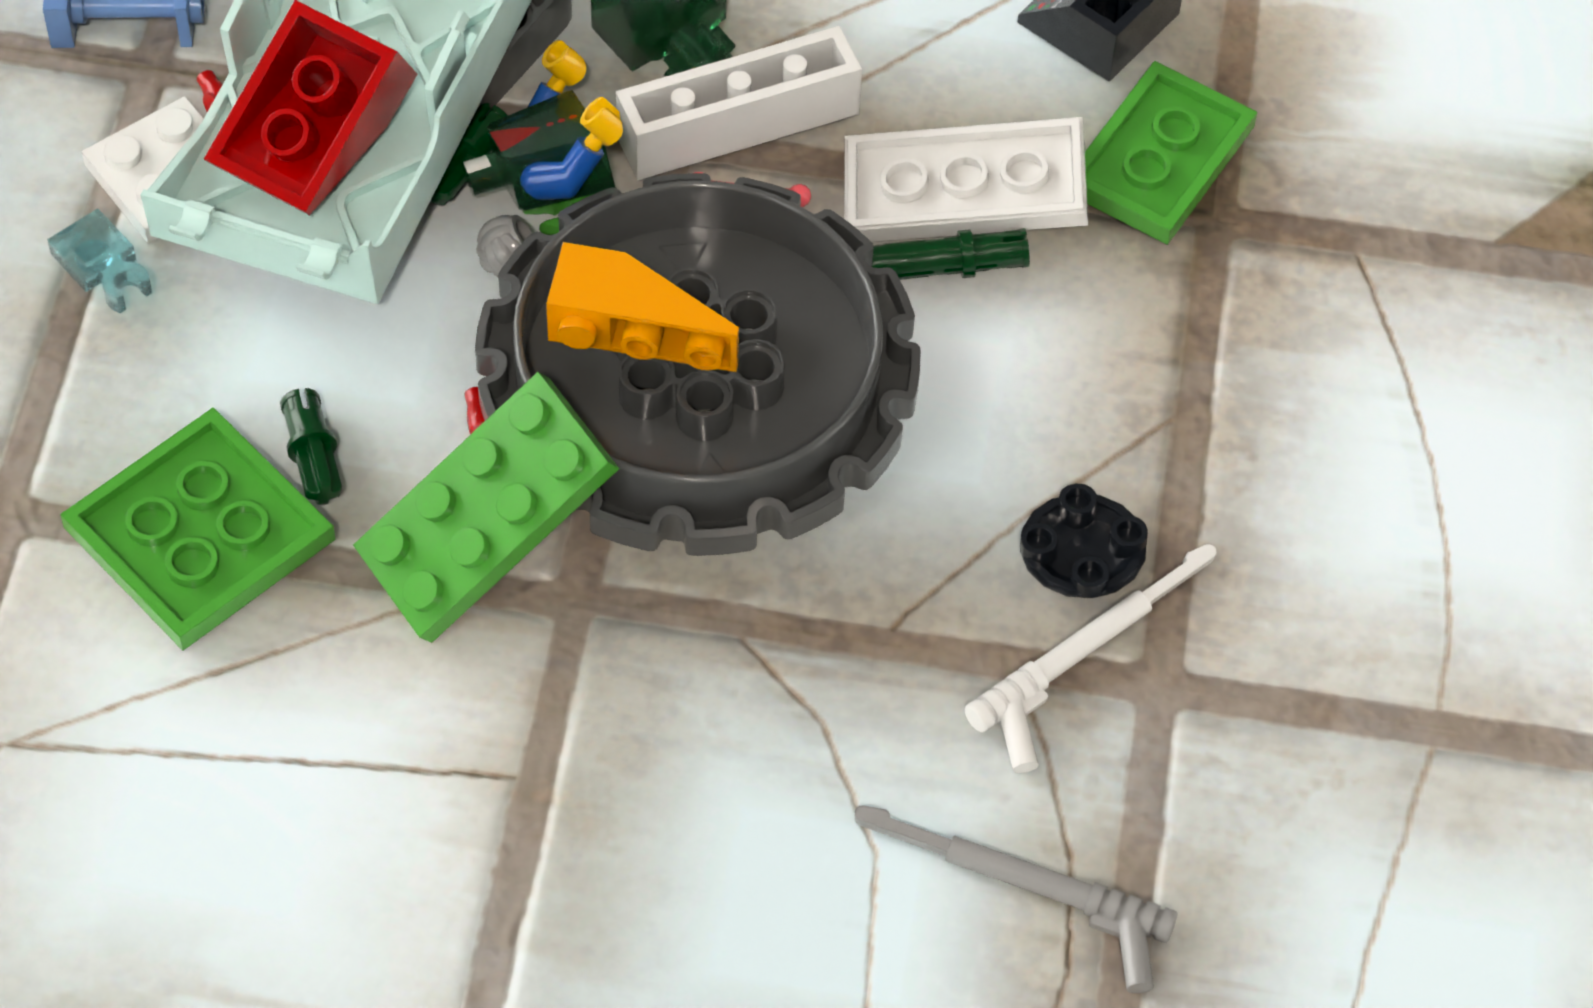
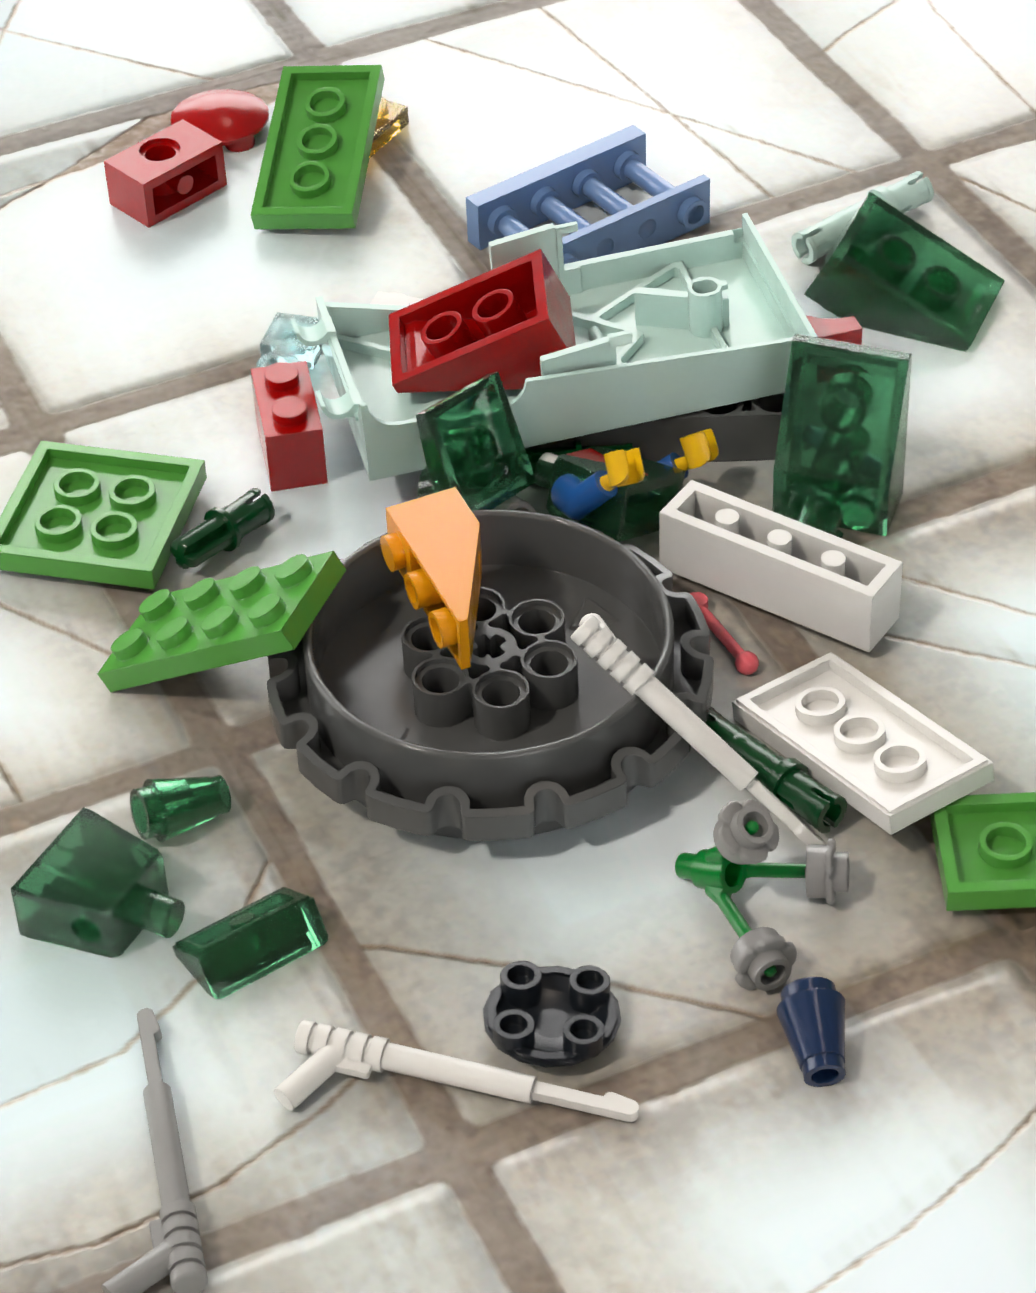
camera: 60 degrees right, 15 degrees down
(224, 320) = (289, 425): none -> red brick
(465, 217) = (474, 446): none -> clear green slope
(643, 665) = (177, 805): none -> clear green cone
(703, 769) = (96, 890): none -> clear green torso
(831, 697) = (252, 942): none -> clear green slope
(867, 265) = (639, 679): none -> white piece
(1061, 308) = (742, 844): none -> light grey plant
(1231, 394) = (815, 1027): none -> dark blue cone

